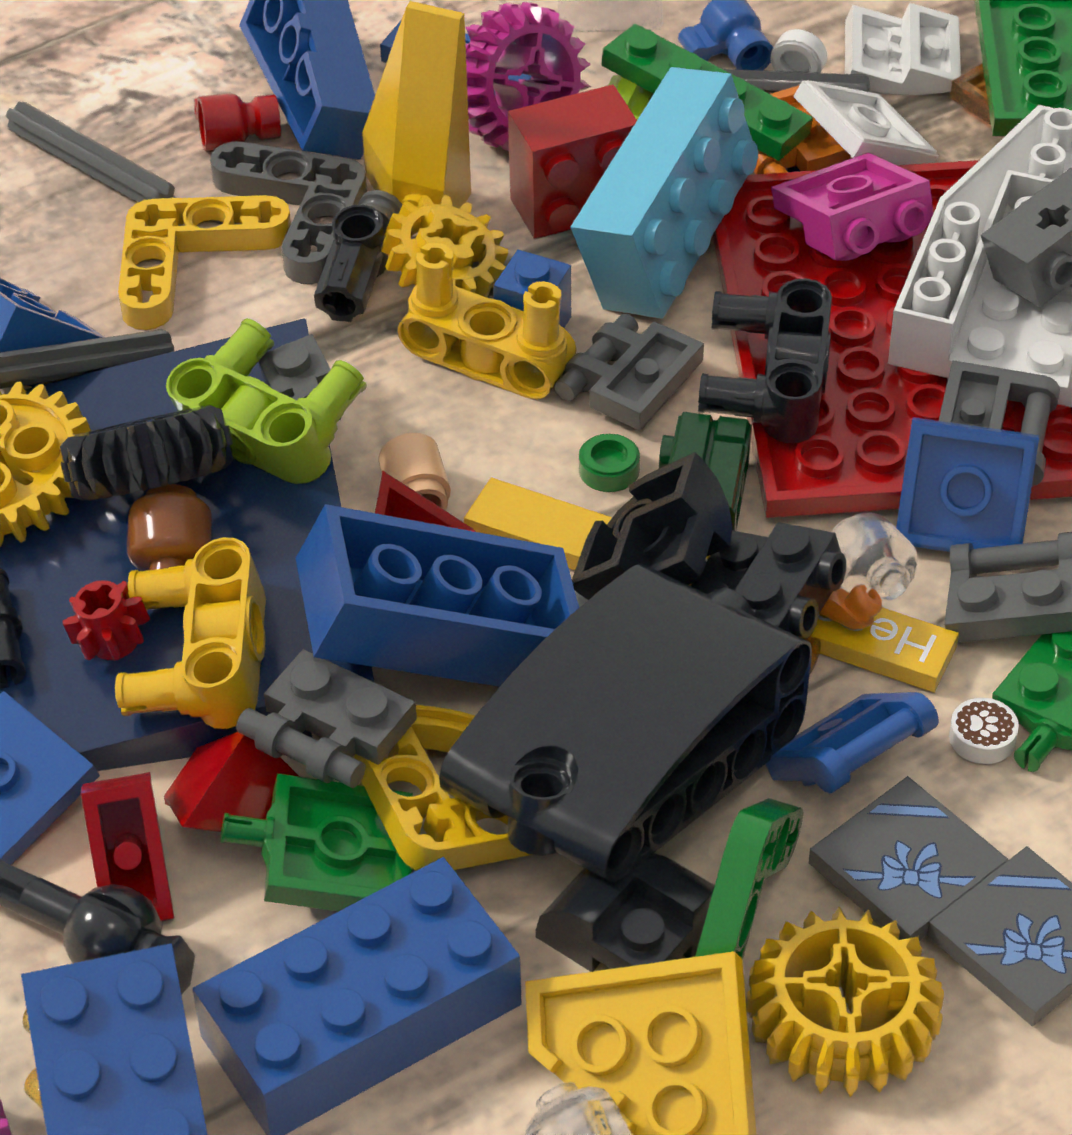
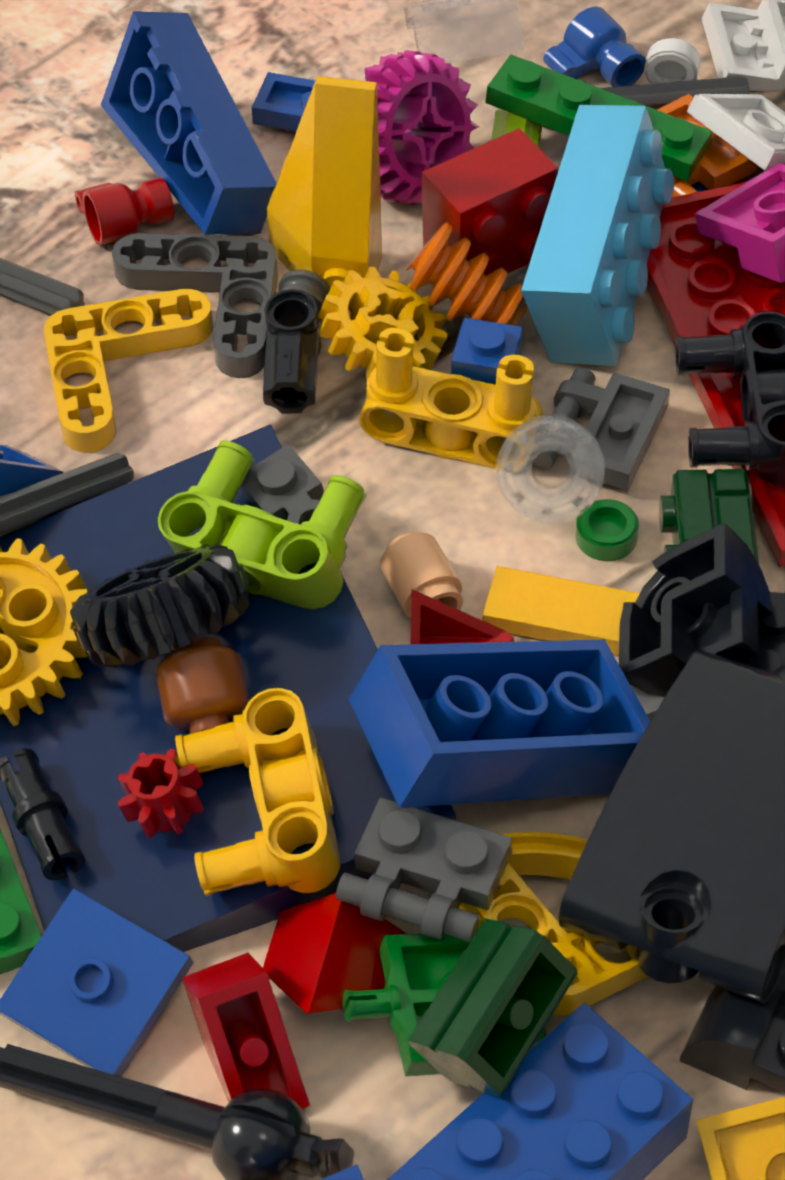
camera: 10 degrees left, 5 degrees up
(349, 840) = (493, 1006): none -> dark green brick
(526, 218) = (465, 281): none -> orange piece
(529, 388) = (550, 502): none -> clear piece

